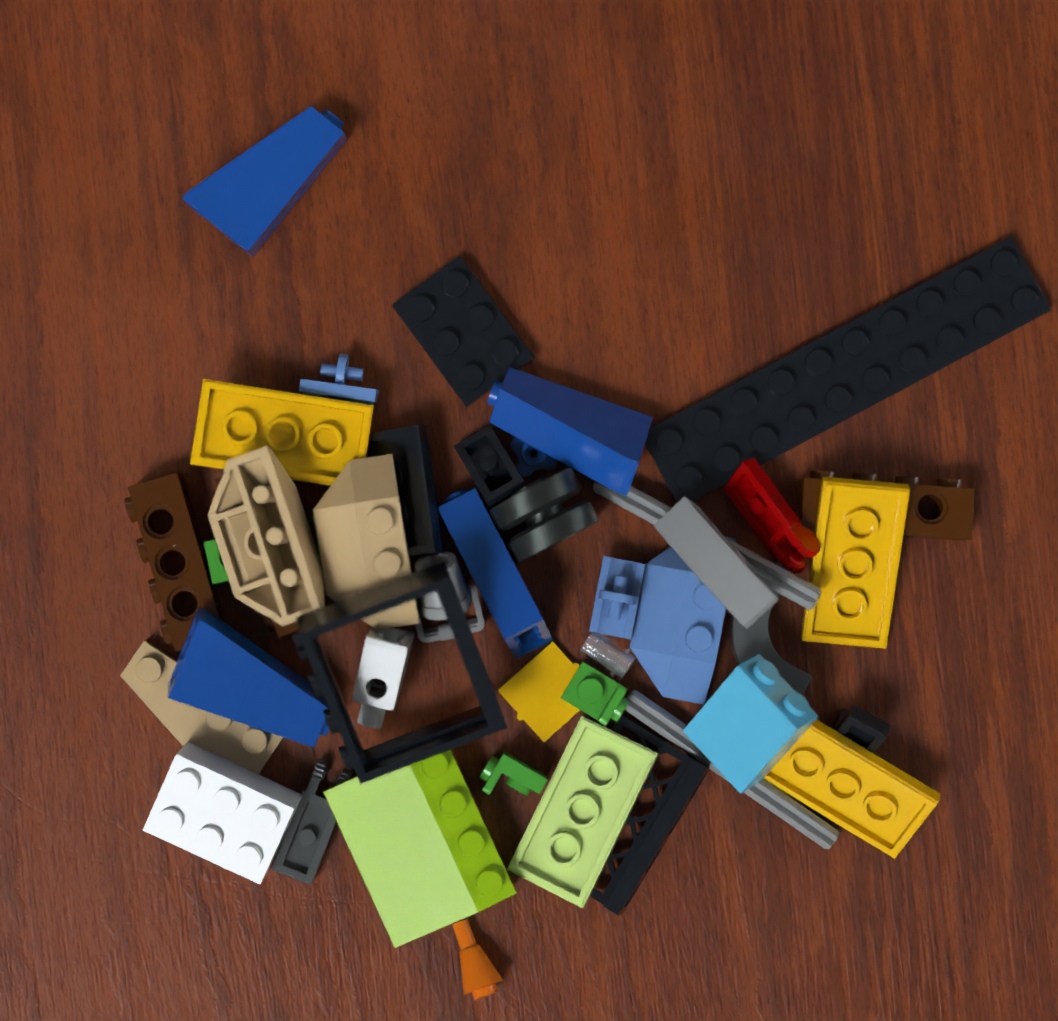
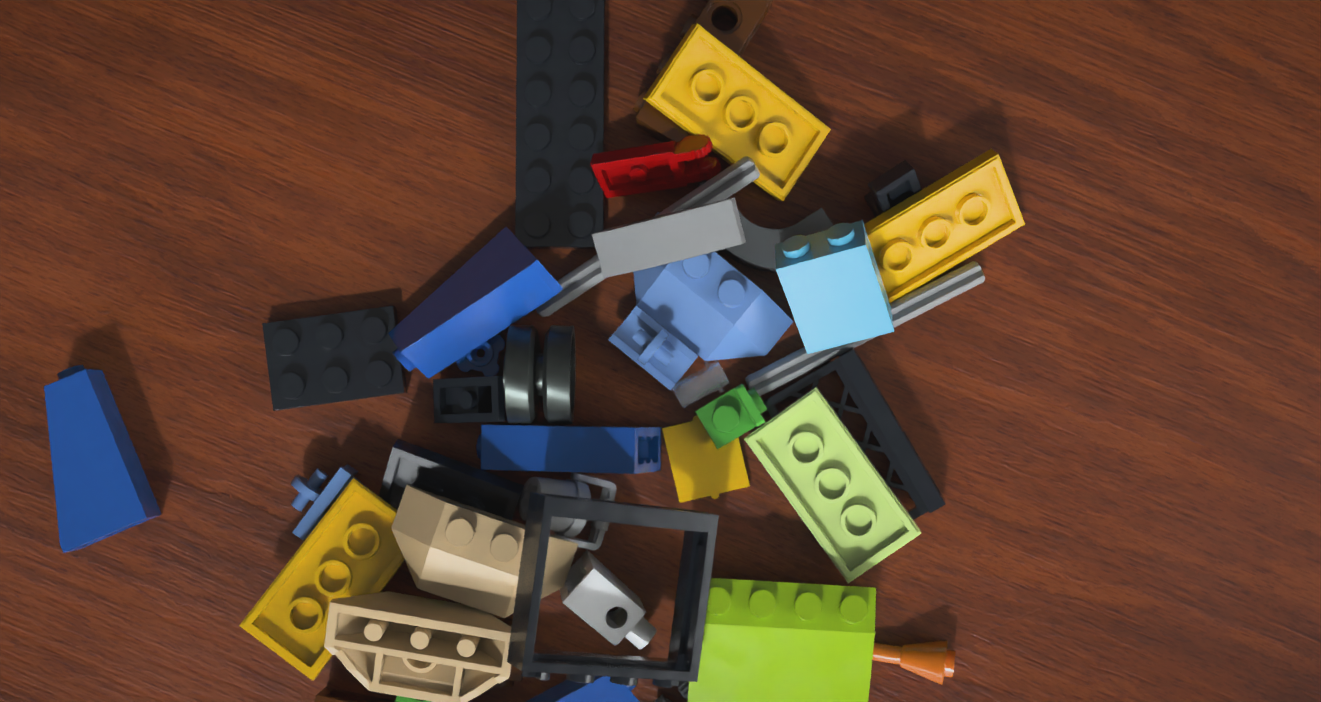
camera: 60 degrees left, 0 degrees up
(521, 775) = (768, 523): bright green bracket -> none

